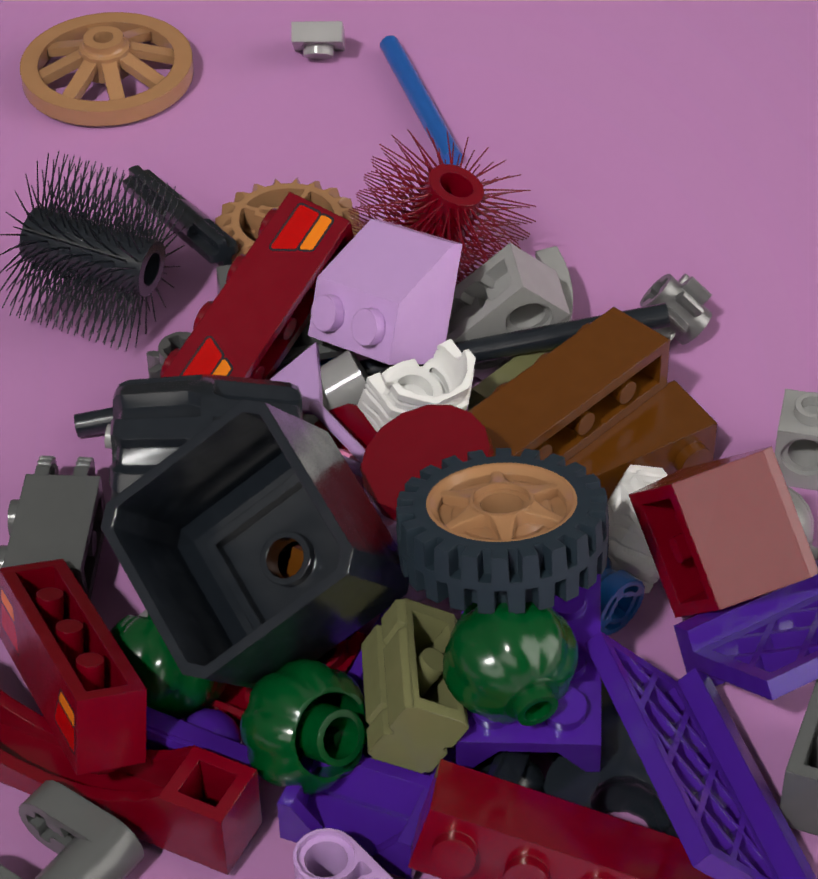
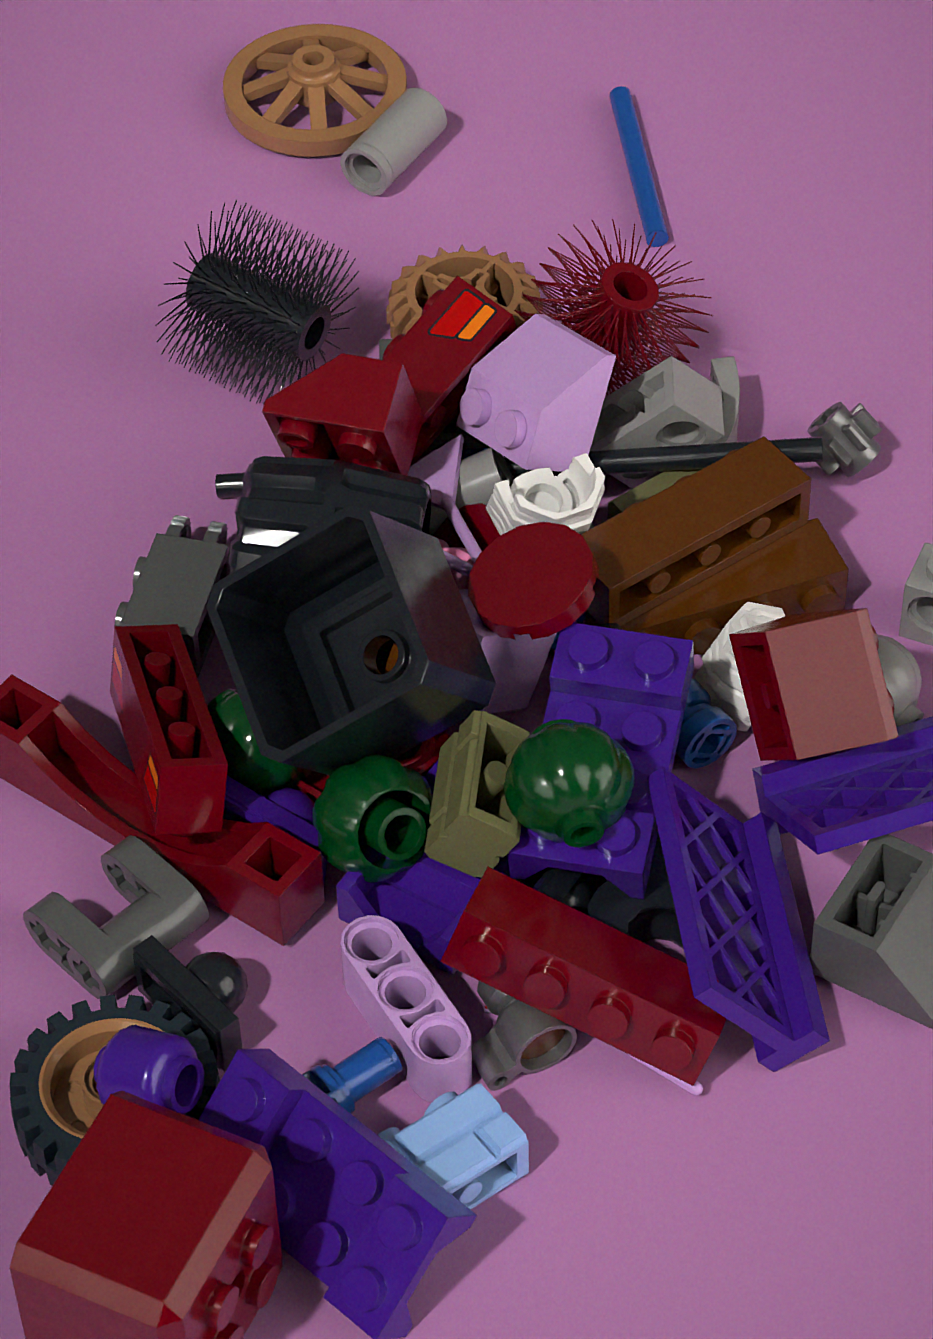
camera: 10 degrees right, 5 degrees up
(190, 102) = (393, 141): none -> light grey pin
(199, 232) = (373, 293): black axle -> none
(207, 325) = (350, 413): none -> dark red slope
(318, 38) = (543, 82): light grey plate -> none
(502, 530) = (581, 658): black wheel -> none

